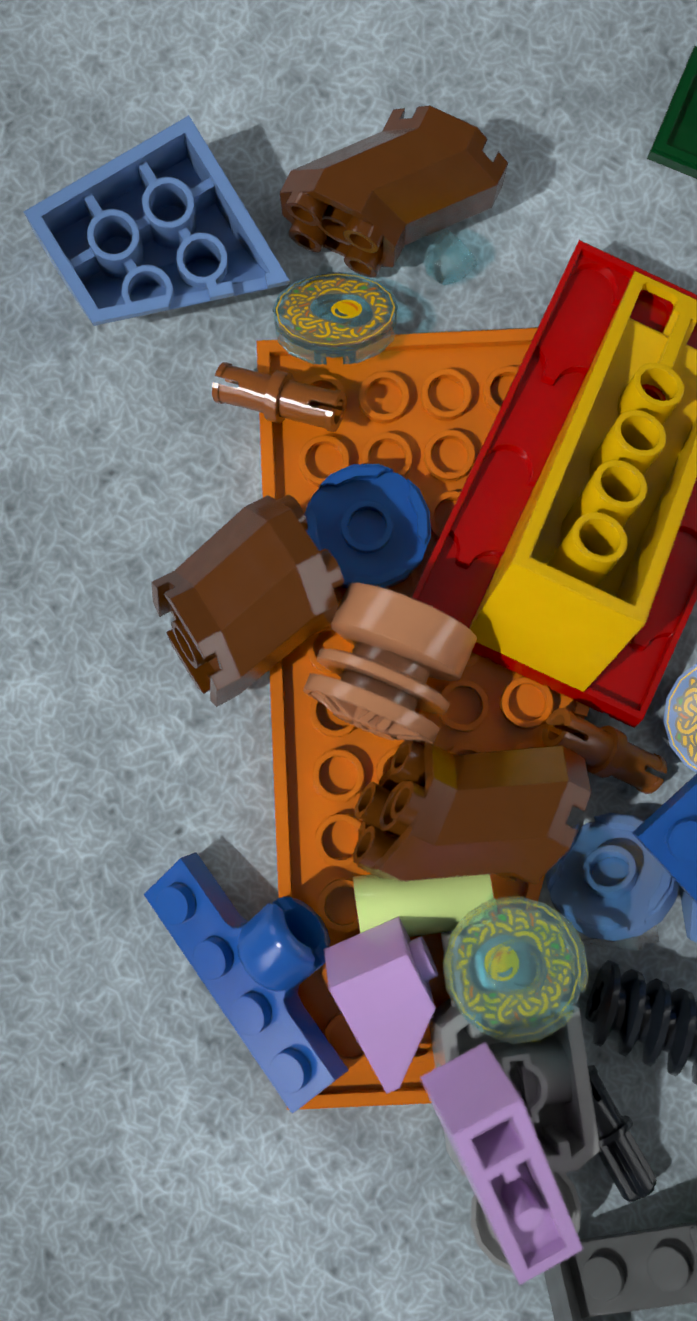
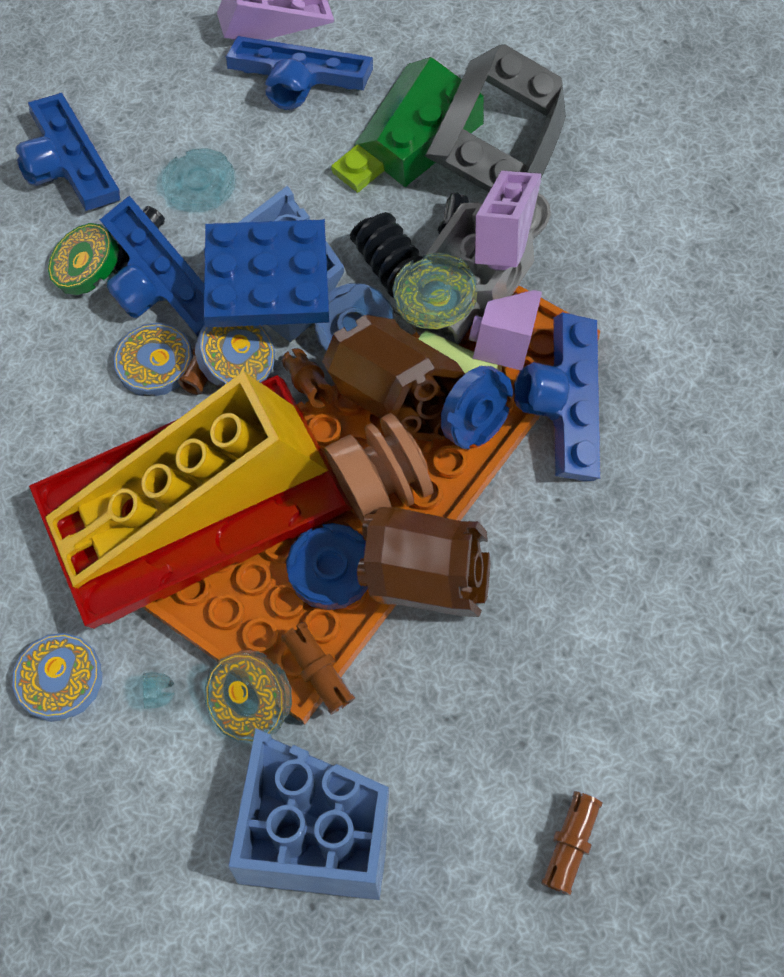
camera: 135 degrees left, 20 degrees down
(338, 848) = (476, 407): none -> blue tile
(392, 189) = (155, 737): reddish brown brick -> none
(571, 192) = (57, 677): none -> tile

